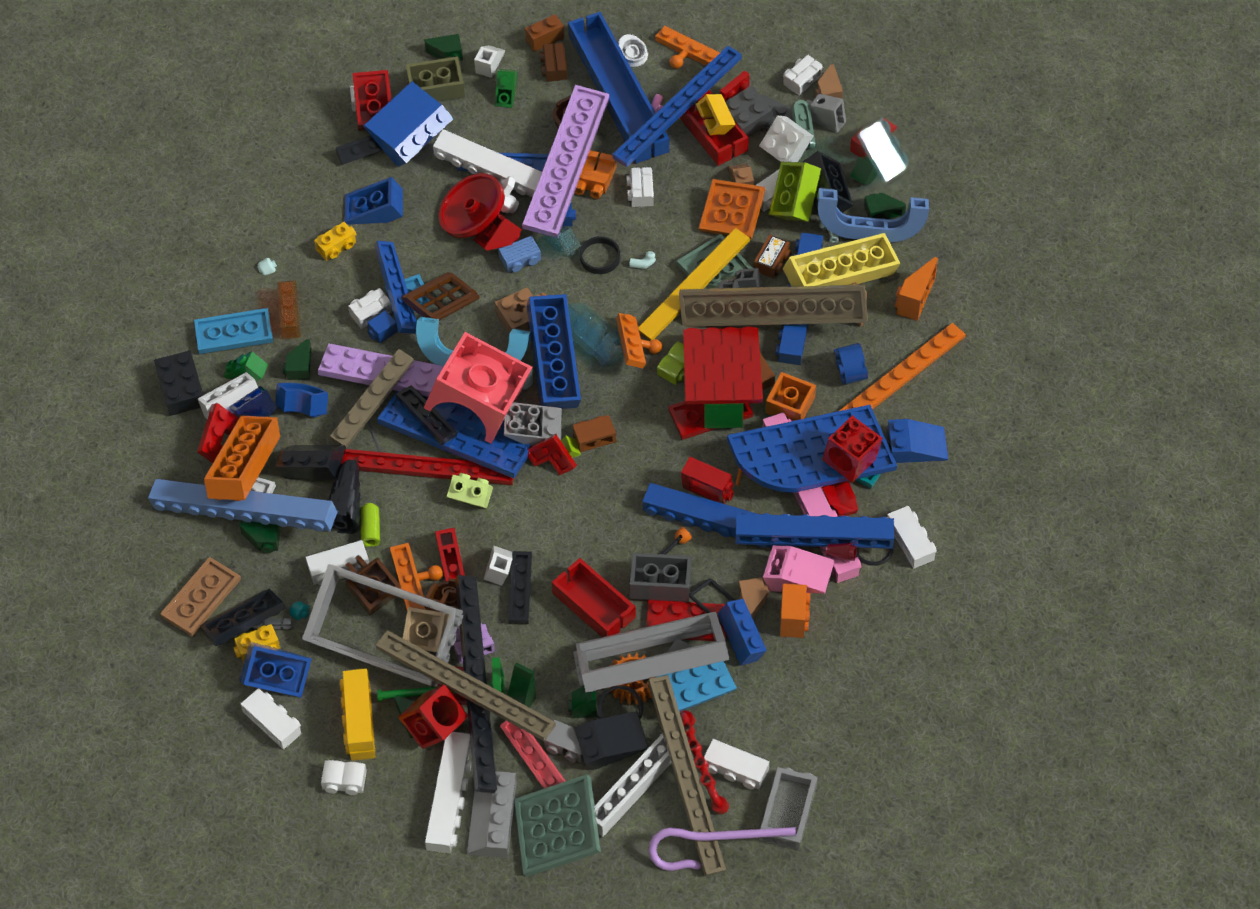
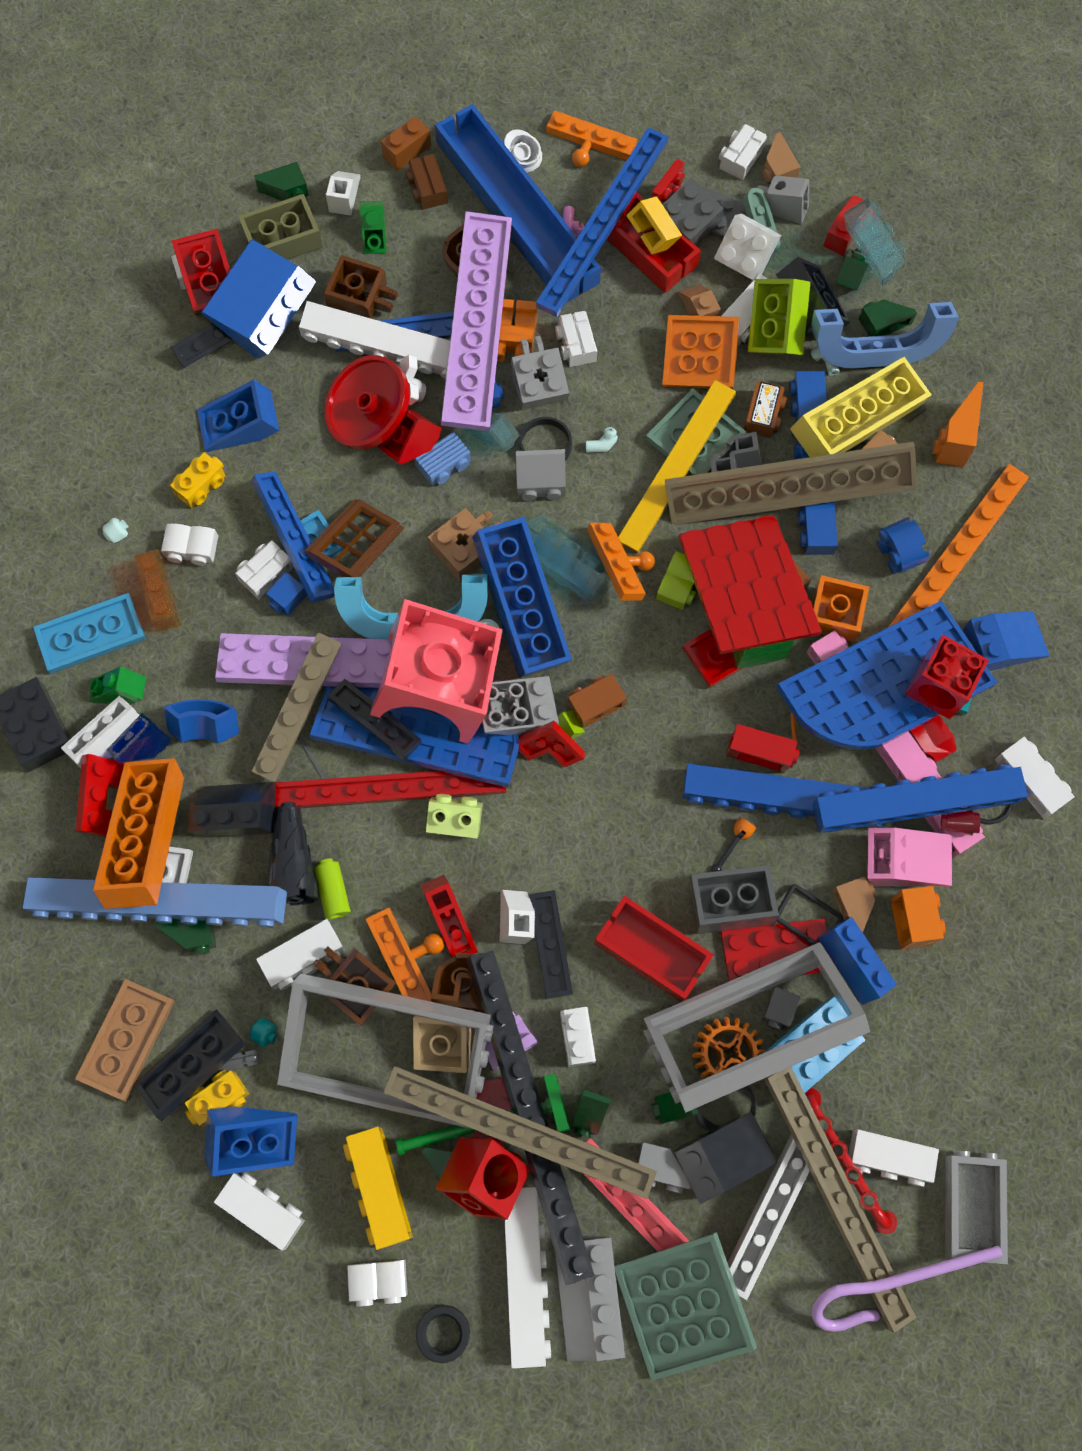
camera: 15 degrees left, 15 degrees up
(298, 362) = (186, 665): dark green slope -> none
(319, 282) = (189, 543): none -> white brick
(382, 833) = (423, 1344): none -> black tyre
(484, 127) = (358, 288): none -> reddish brown hinge
(525, 645) = (577, 1037): none -> white brick
(589, 273) = (540, 474): none -> light grey slope
(601, 199) = (539, 364): none -> light grey hinge

